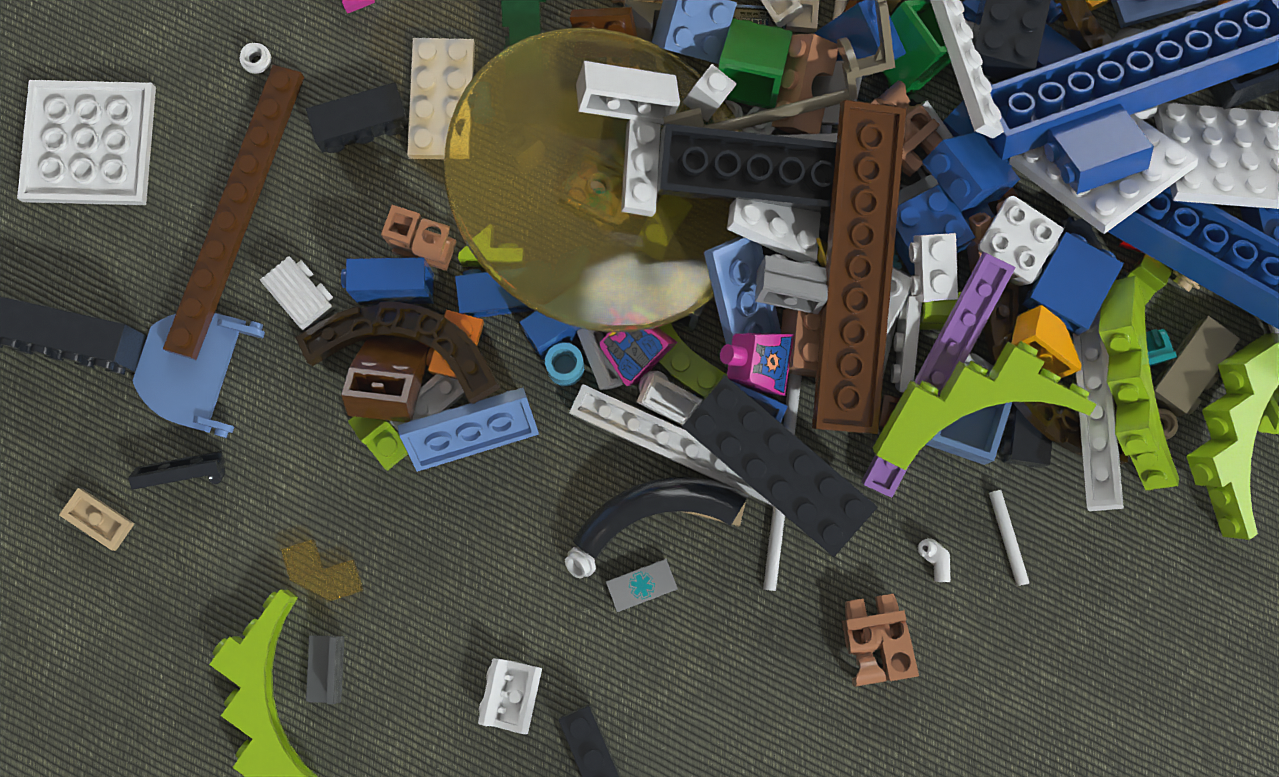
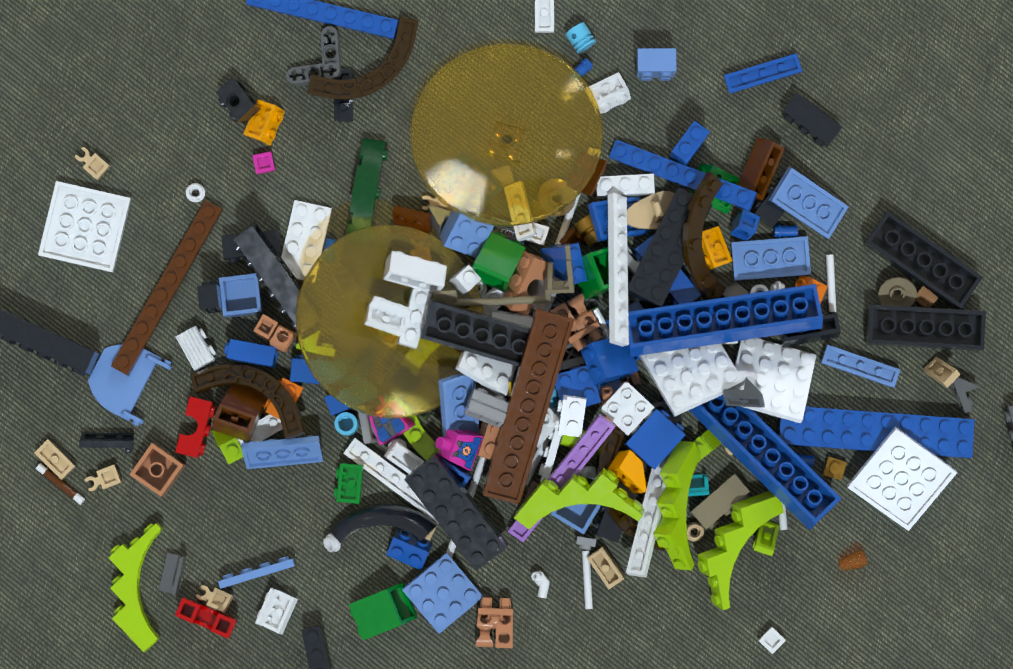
camera: 15 degrees right, 5 degrees up
(86, 45) = (94, 164): none -> tan plate
(113, 558) = (60, 484): none -> reddish brown bar
(187, 532) = (106, 478): none -> tan plate
(268, 501) = (157, 470): none -> nougat brick
(304, 204) = (209, 298): none -> black brick
(307, 571) = (171, 514): clear yellow tile -> none
(321, 447) = (193, 444): none -> red arch
(353, 194) = (241, 295): none -> medium blue piece
(391, 134) = (270, 268): none -> black brick
(393, 730) = (206, 617): none -> red arch
(407, 699) = (216, 600): none -> tan plate
(452, 643) = (248, 574): none -> medium blue plate
(589, 458) = (349, 483): none -> green bracket
(596, 165) = (386, 315): none -> white bracket
(641, 585) = (365, 563): light grey tile -> none
(687, 660) = (382, 611): none -> green slope
(709, 546) = (409, 549): none -> blue bracket
(779, 607) = (442, 592): none -> medium blue plate
(994, 476) = (585, 543): none -> light grey plate
(1036, 511) = (606, 567): none -> tan slope
(1098, 149) = (683, 364): brick -> none
(1218, 177) = (744, 398): none -> dark grey slope

